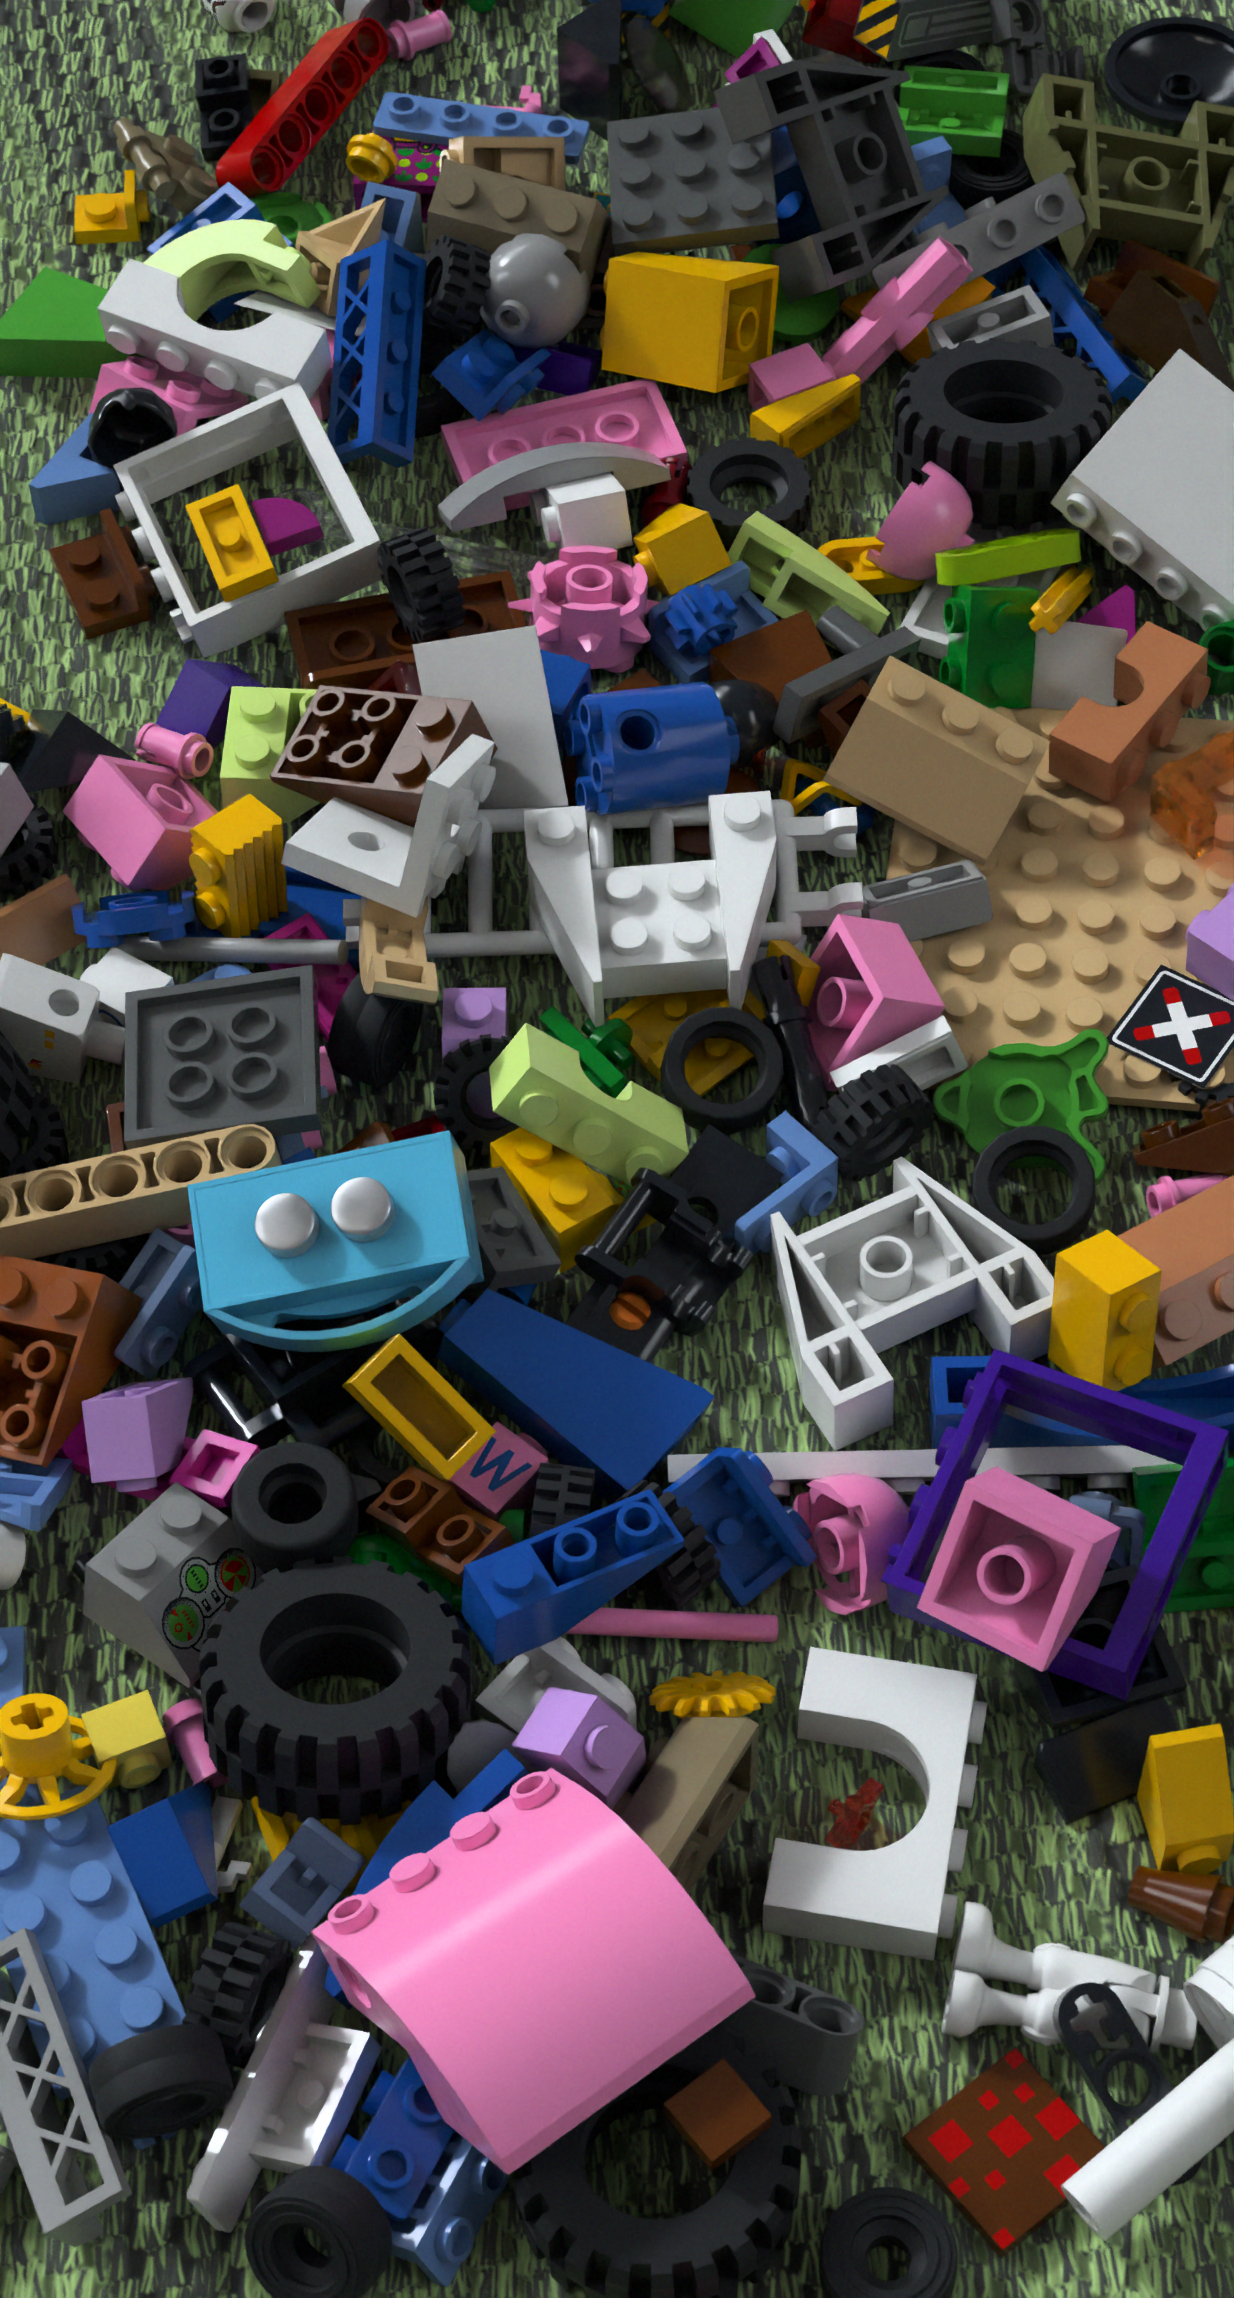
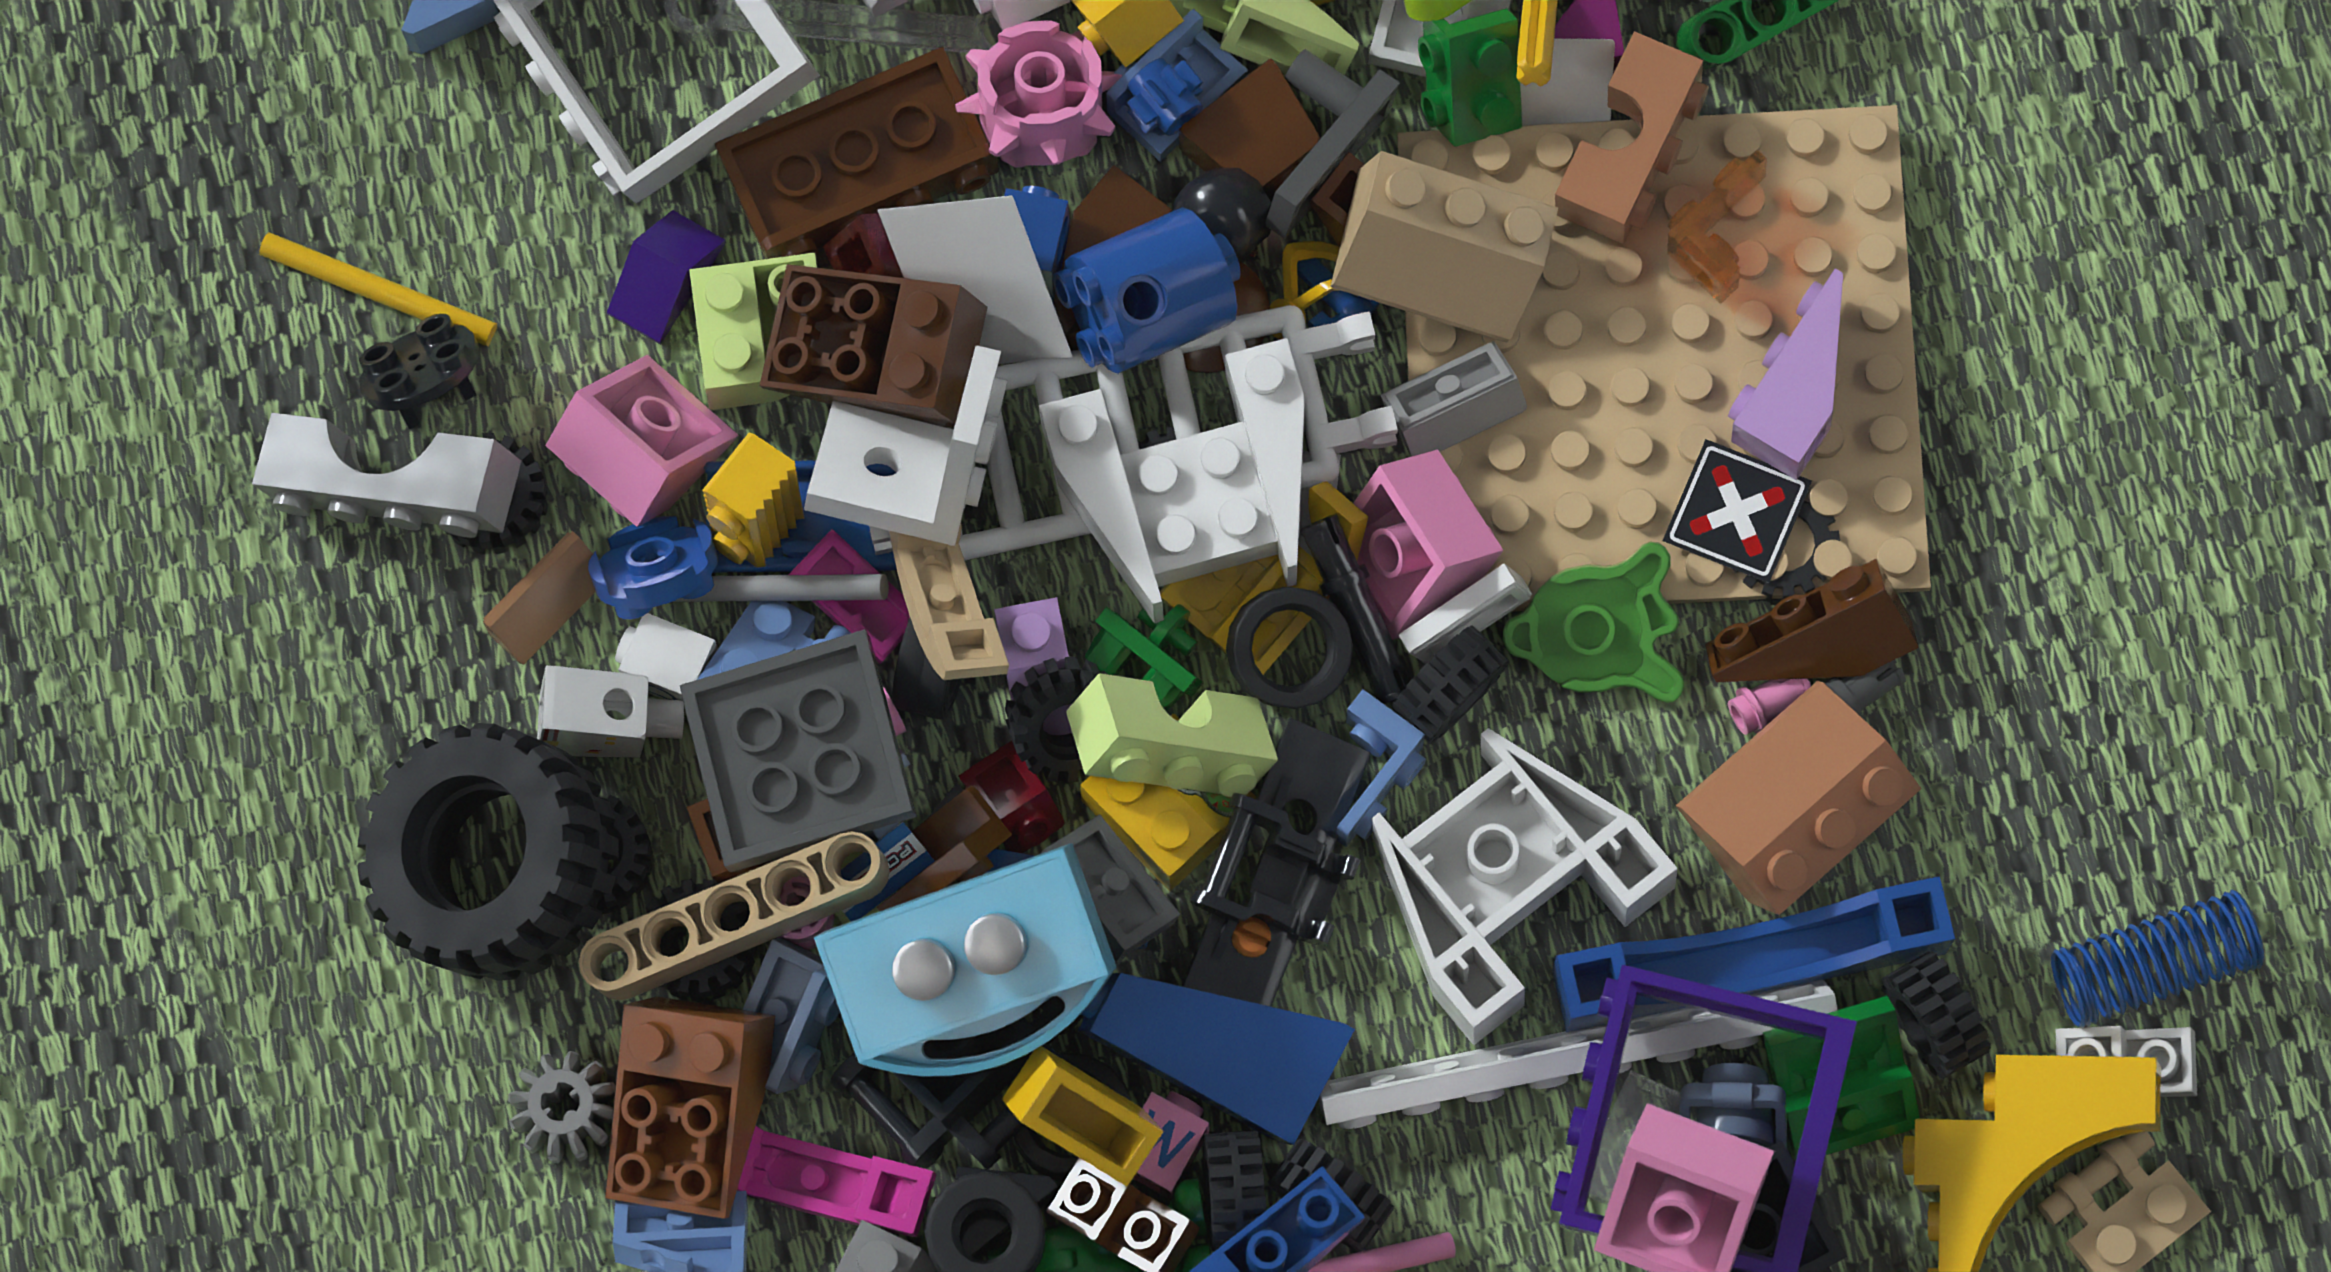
camera: 10 degrees left, 20 degrees up
(58, 750) = (523, 377): black slope -> none
(104, 579) = (506, 126): reddish brown bracket -> none
(137, 1431) = (809, 1163): lavender slope -> none
(186, 754) = (640, 340): bright pink pin -> none
(232, 543) = (648, 90): yellow plate -> none
(285, 524) = (699, 56): magenta tile -> none
(421, 584) = (862, 109): black tyre -> none
(744, 1521) = (1401, 1157): blue bracket -> none
(852, 1530) = (1516, 1148): bright pink cylinder -> none
(1034, 1142) = (1629, 776): black tyre -> none
(1104, 1312) = (1715, 884): yellow piece -> none

